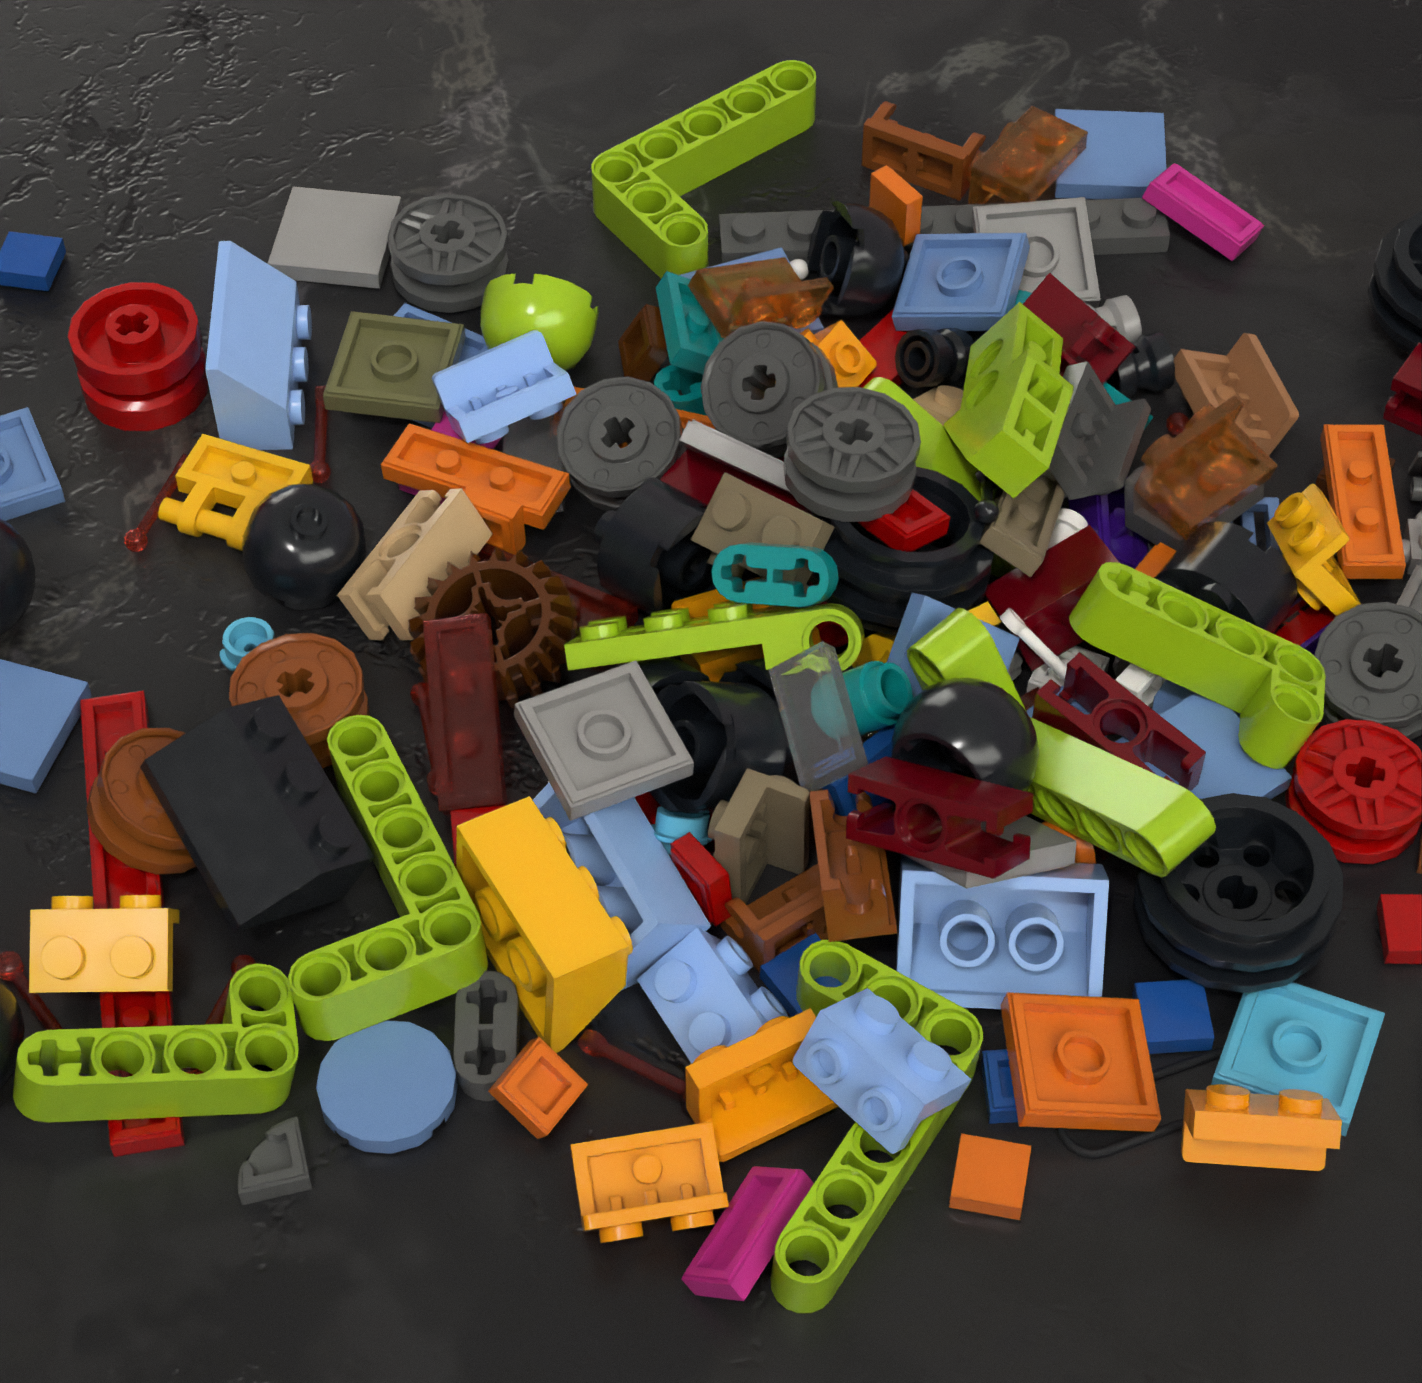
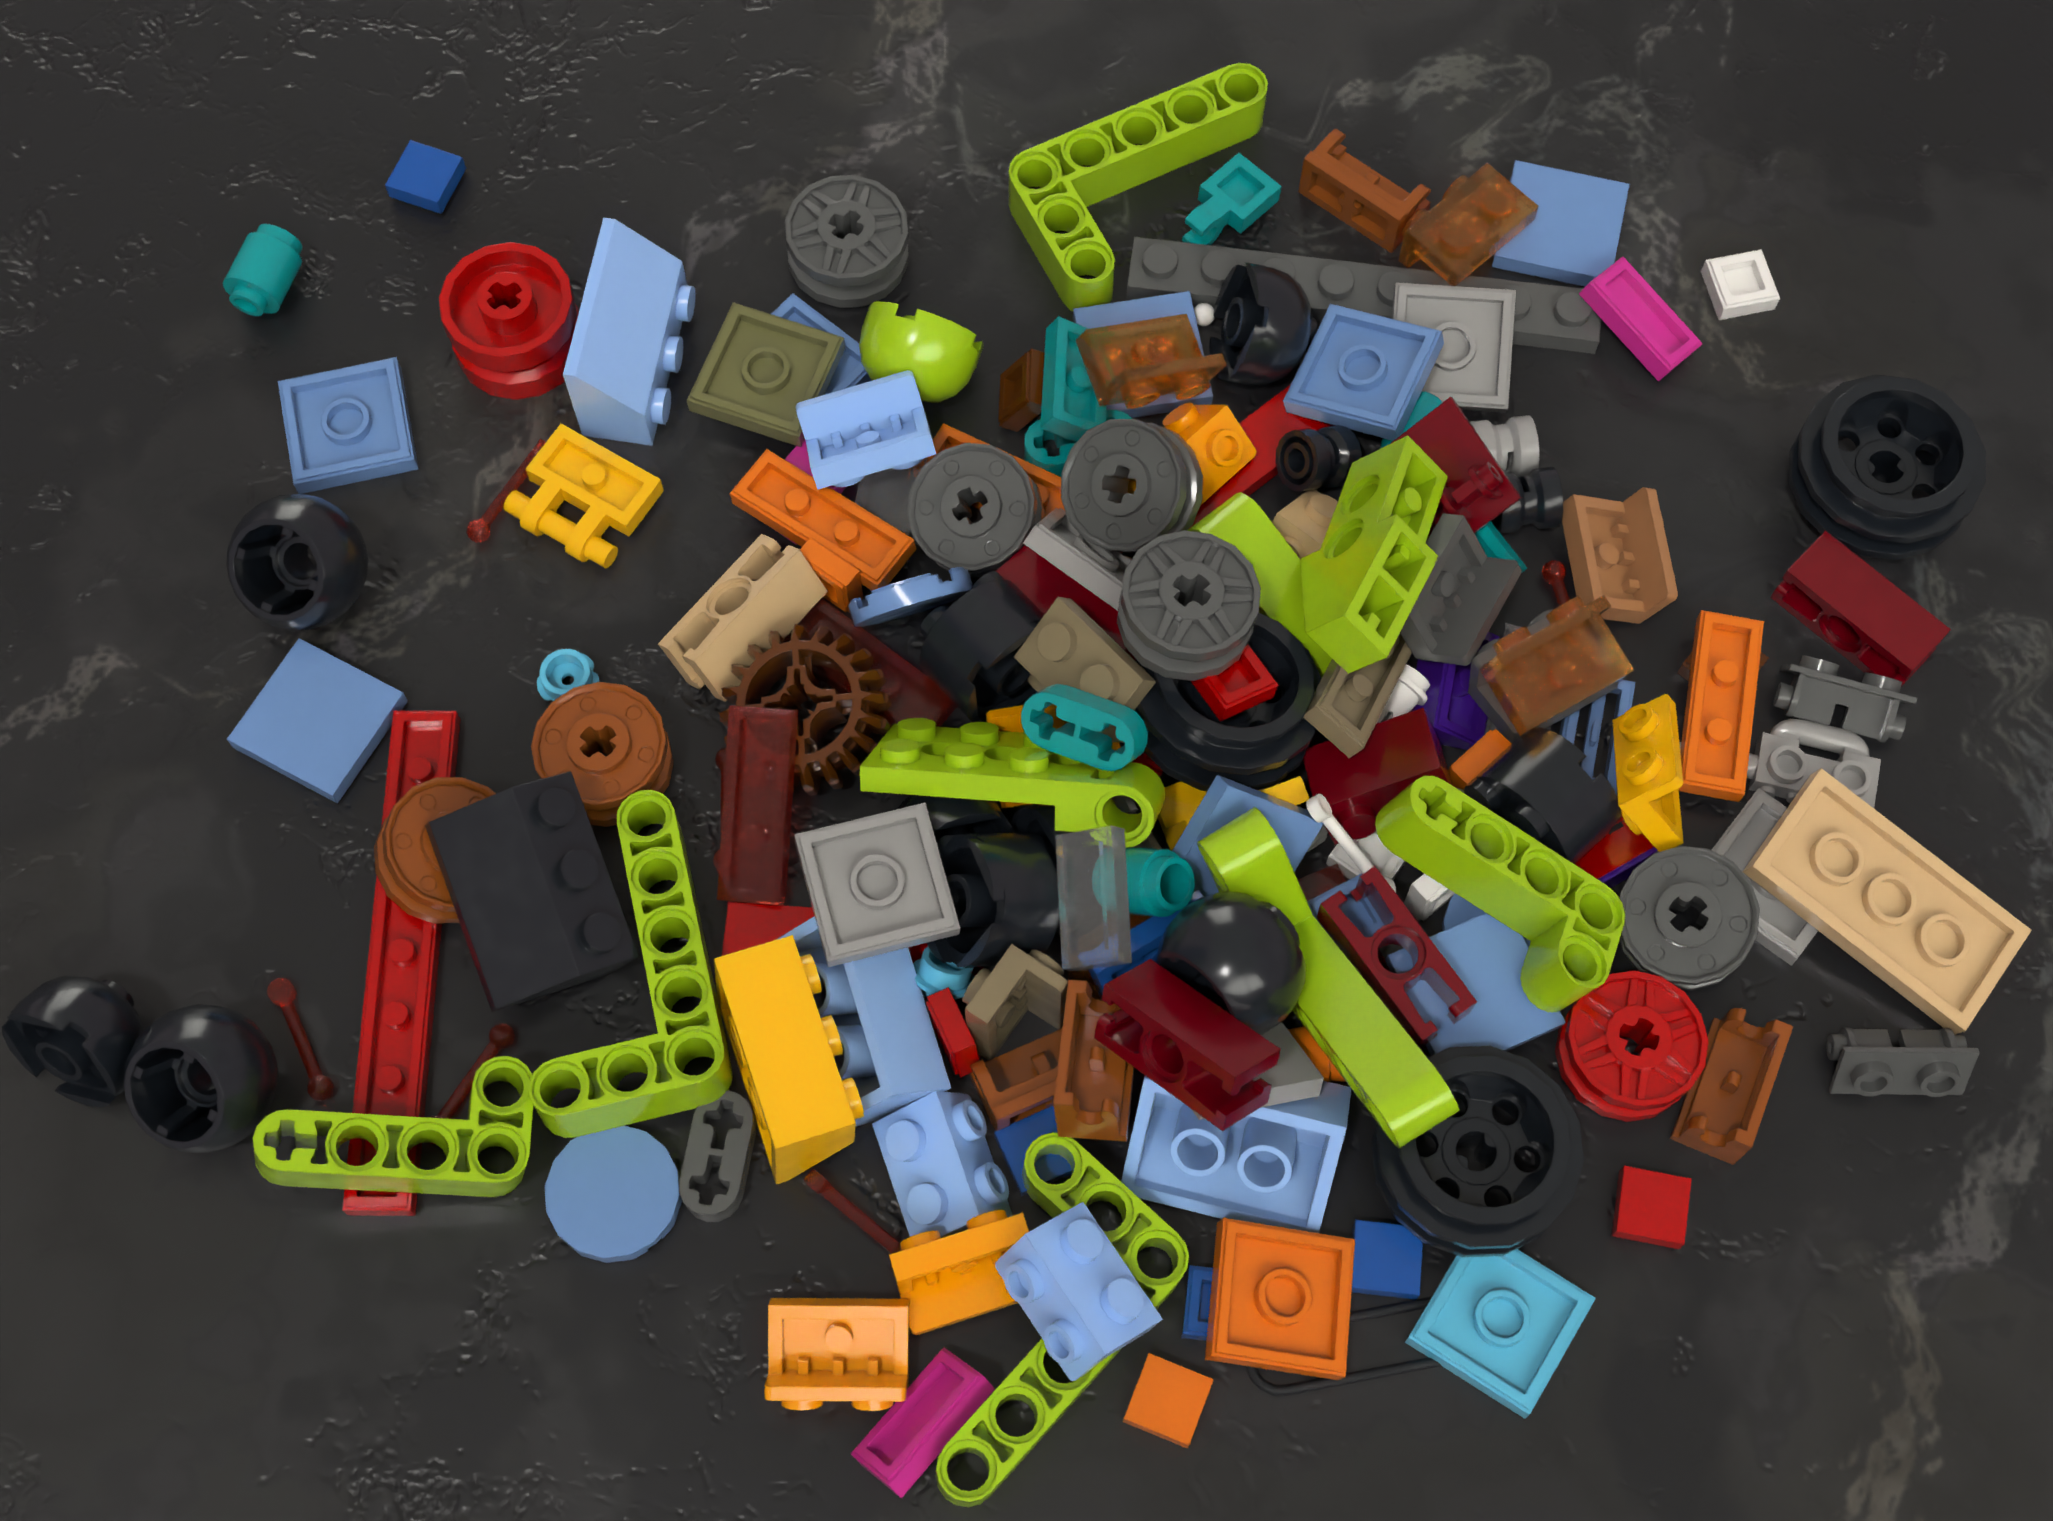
camera: 10 degrees right, 15 degrees up
(102, 948) = (365, 1001): yellow bracket -> none
(275, 1165) = (495, 1256): dark grey tile -> none
(303, 545) = (637, 576): black cylinder -> none
(319, 468) = (672, 478): clear red hinge -> none
(335, 237) = (737, 197): light grey tile -> none
(538, 1088) = (754, 1226): orange tile -> none
(571, 519) = (909, 597): none -> medium blue tile
(803, 169) = (1231, 196): none -> teal plate
(897, 201) = (1314, 268): orange tile -> none
(986, 509) = (1316, 685): black hinge -> none
(1259, 1129) = (1438, 1408): light orange bracket -> none
(1284, 178) = (1740, 284): none -> white tile

